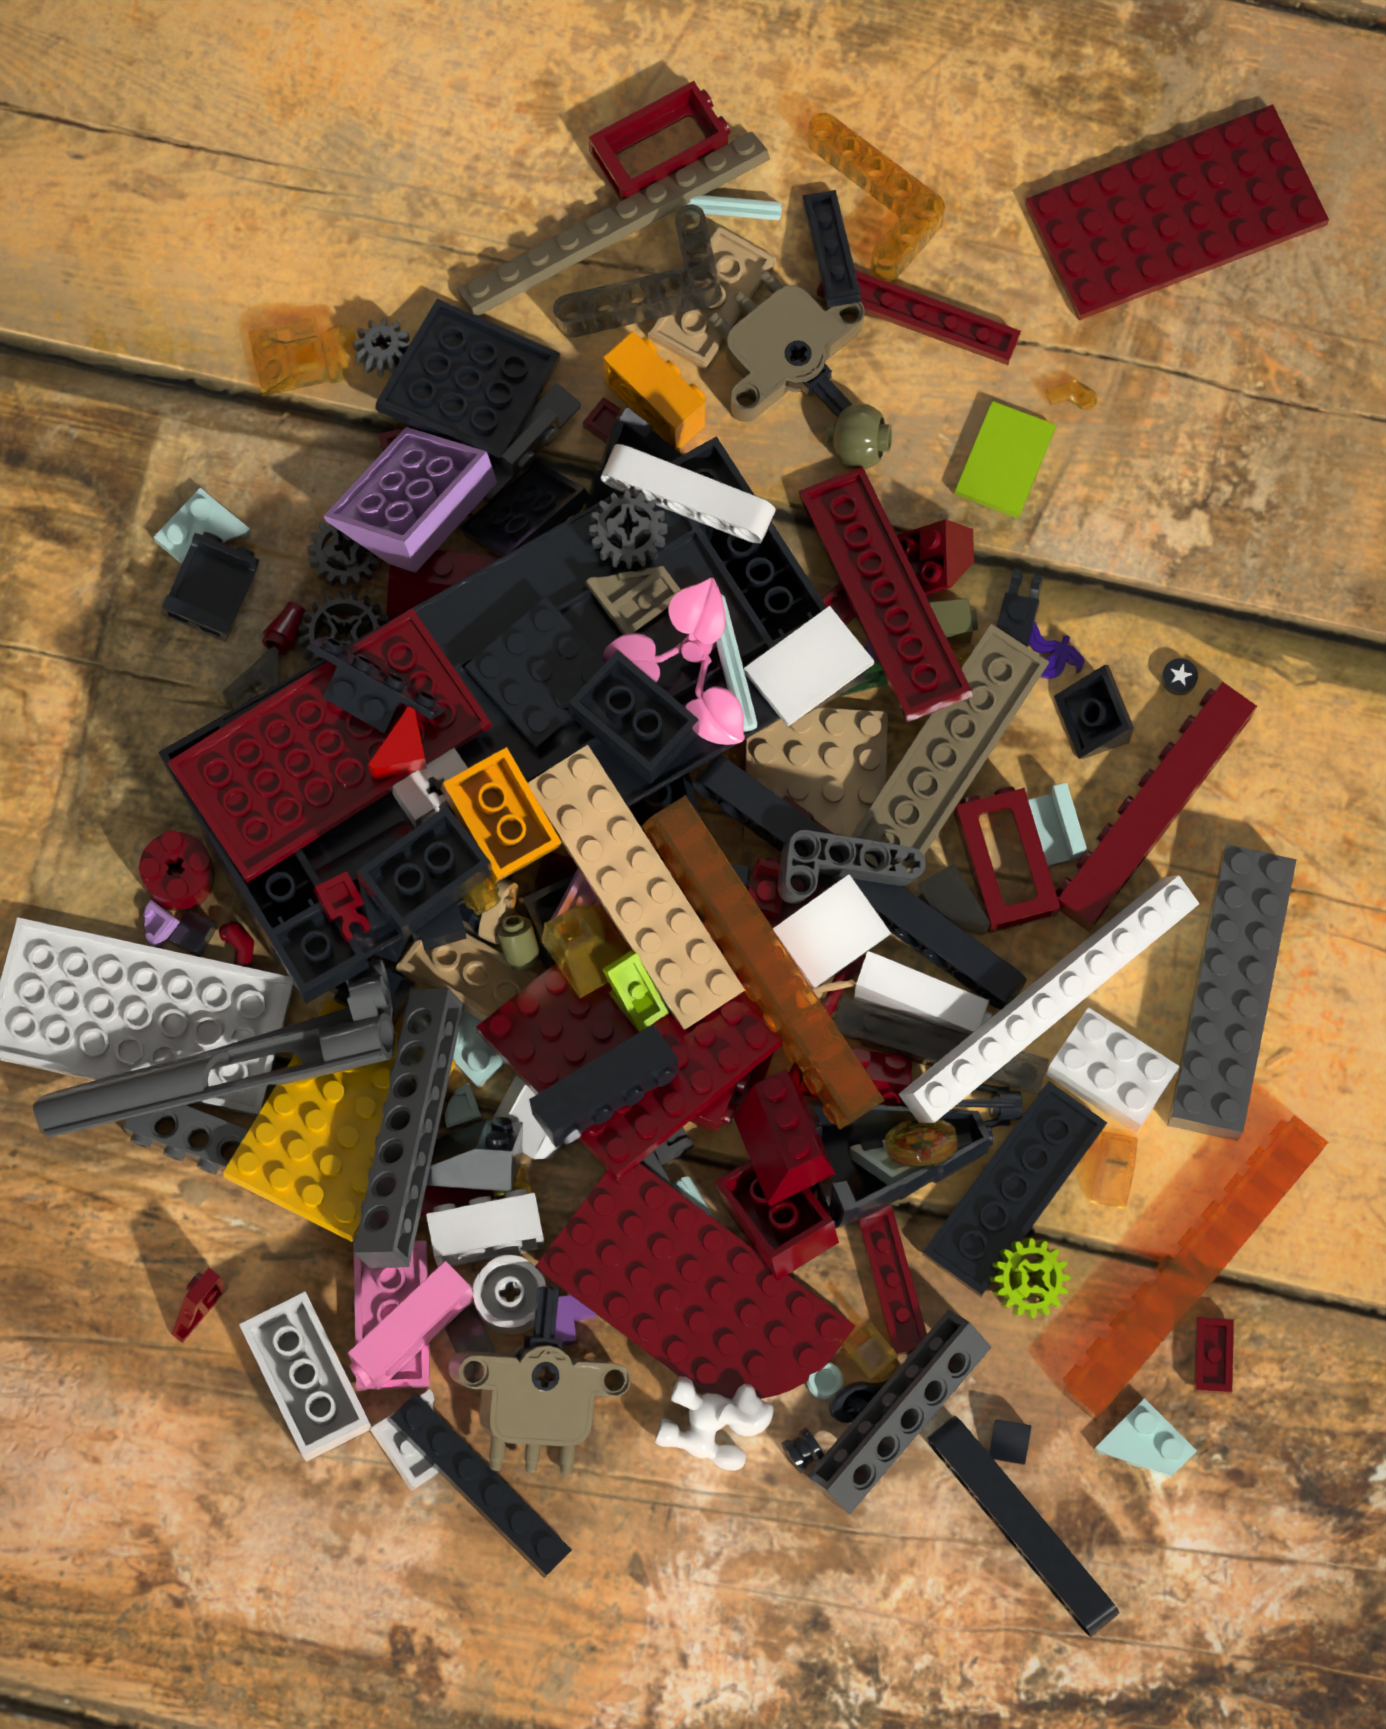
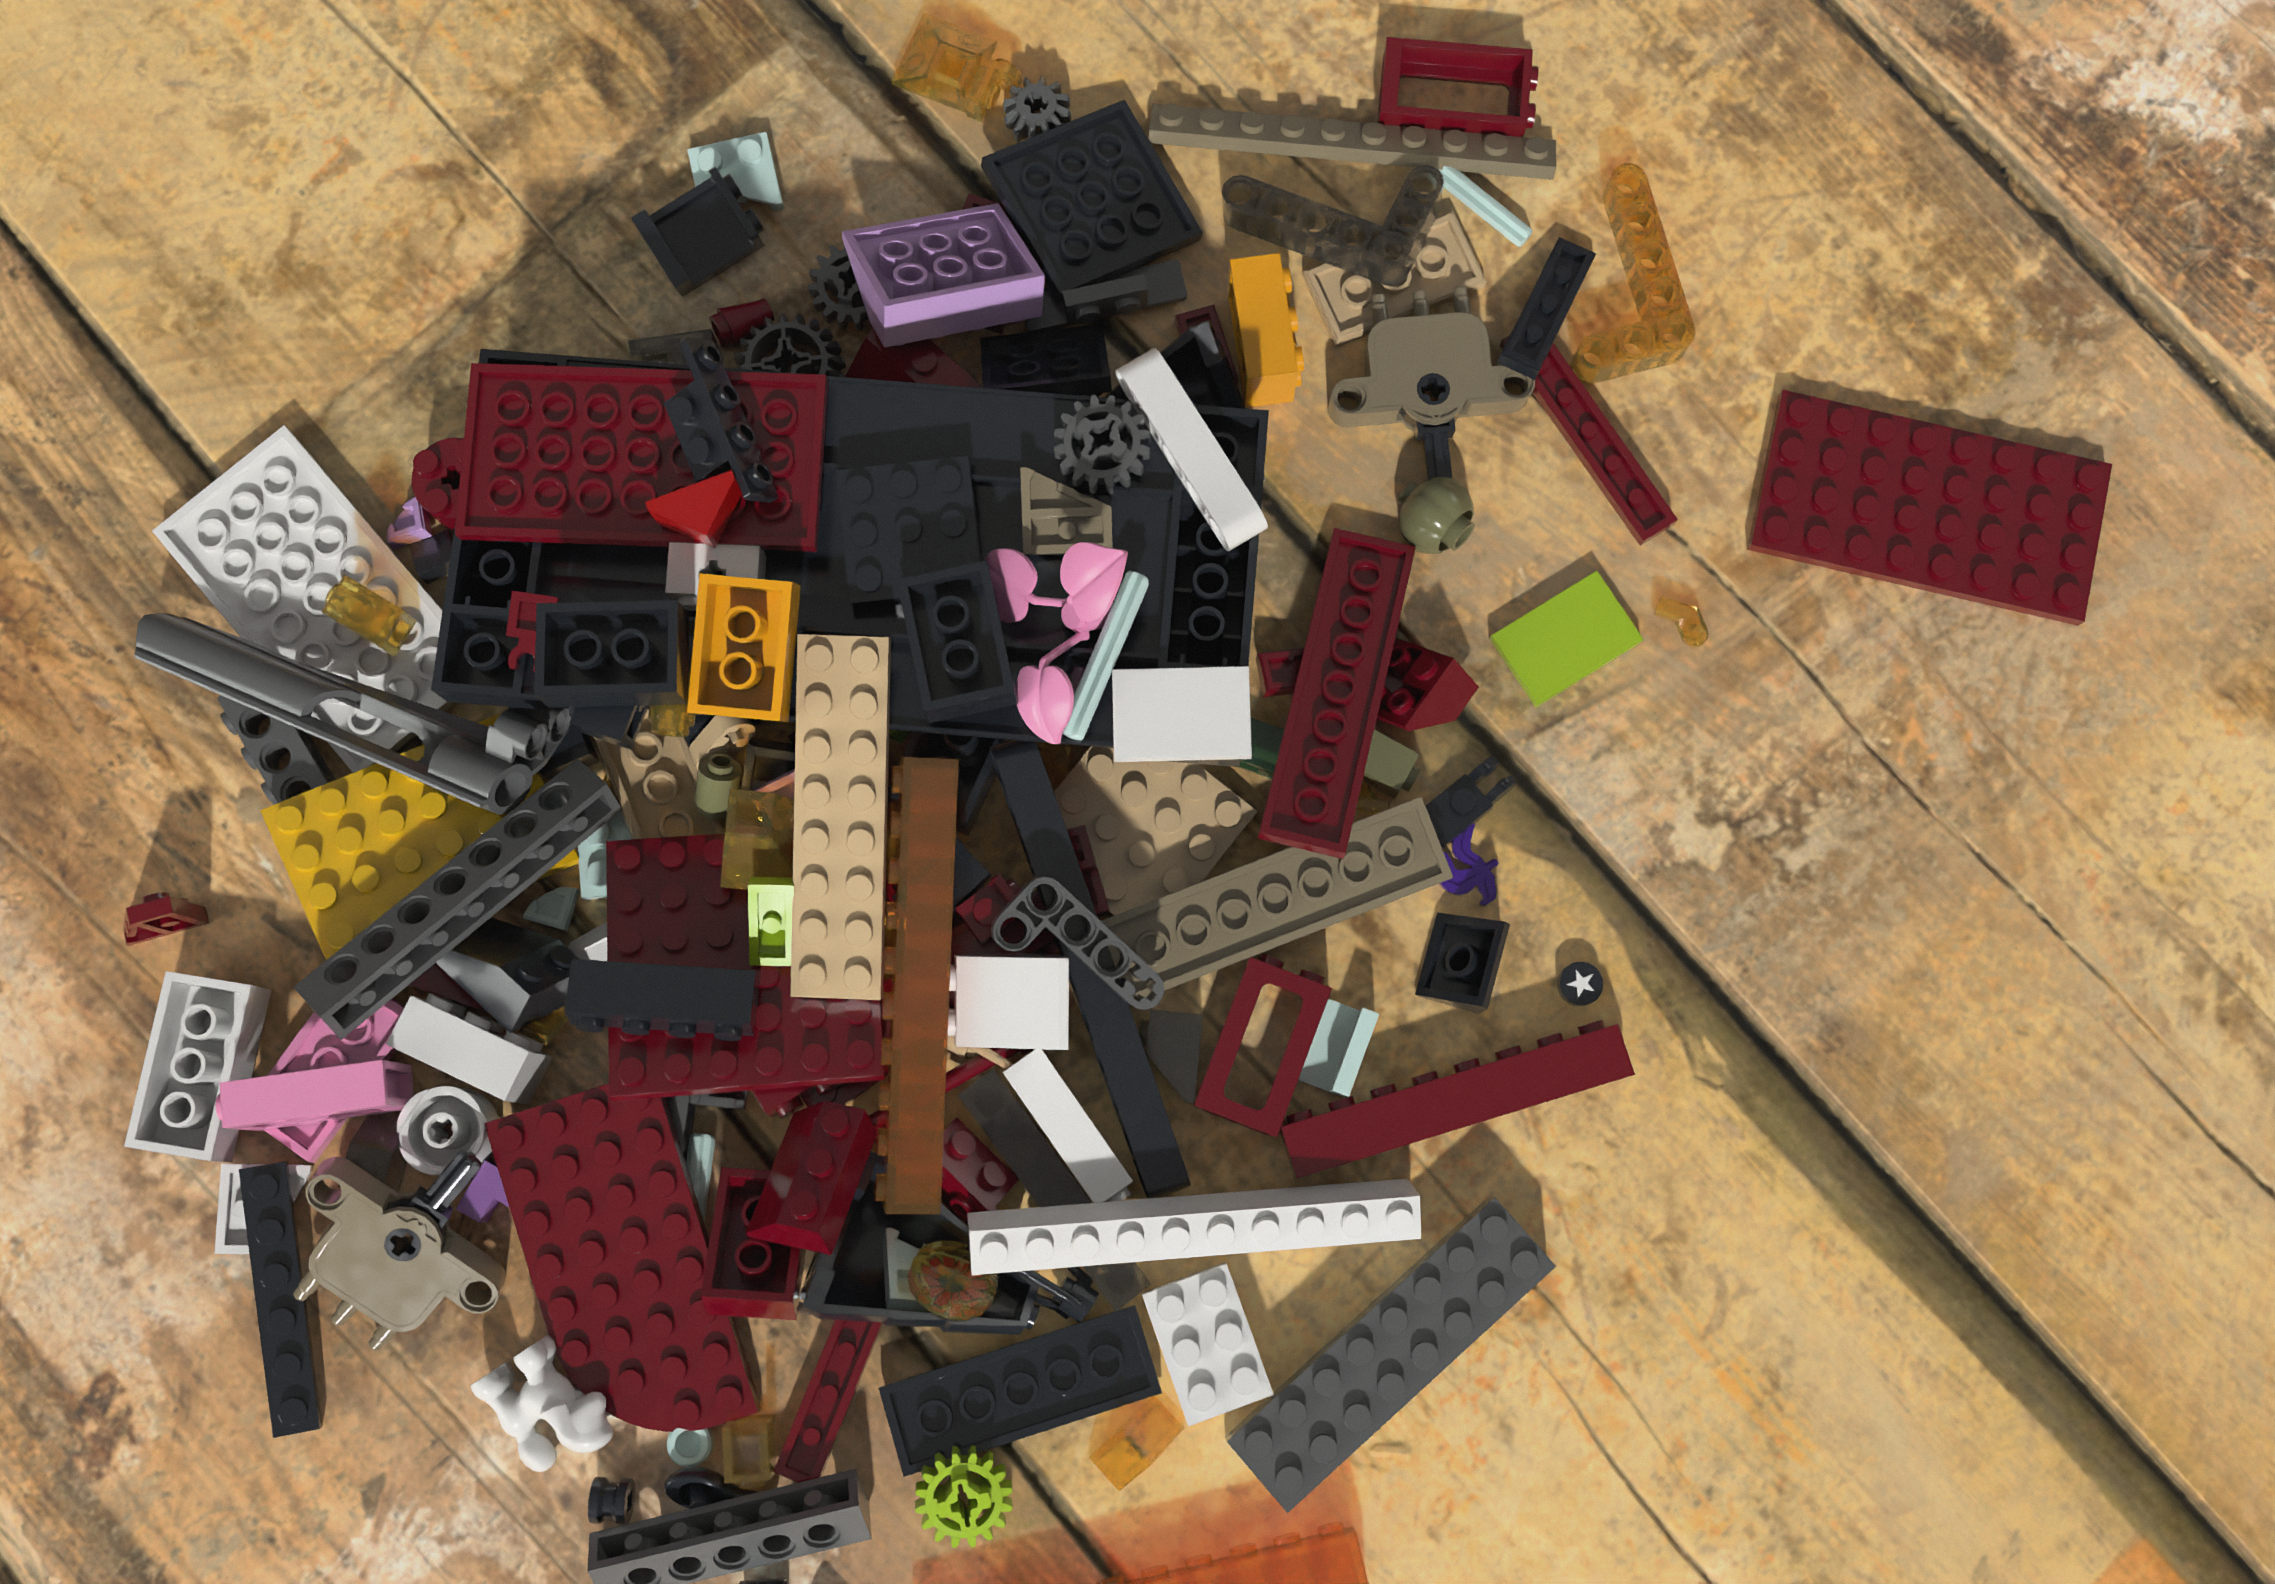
camera: 40 degrees right, 5 degrees up
(193, 995) = (368, 615): none -> clear yellow slope

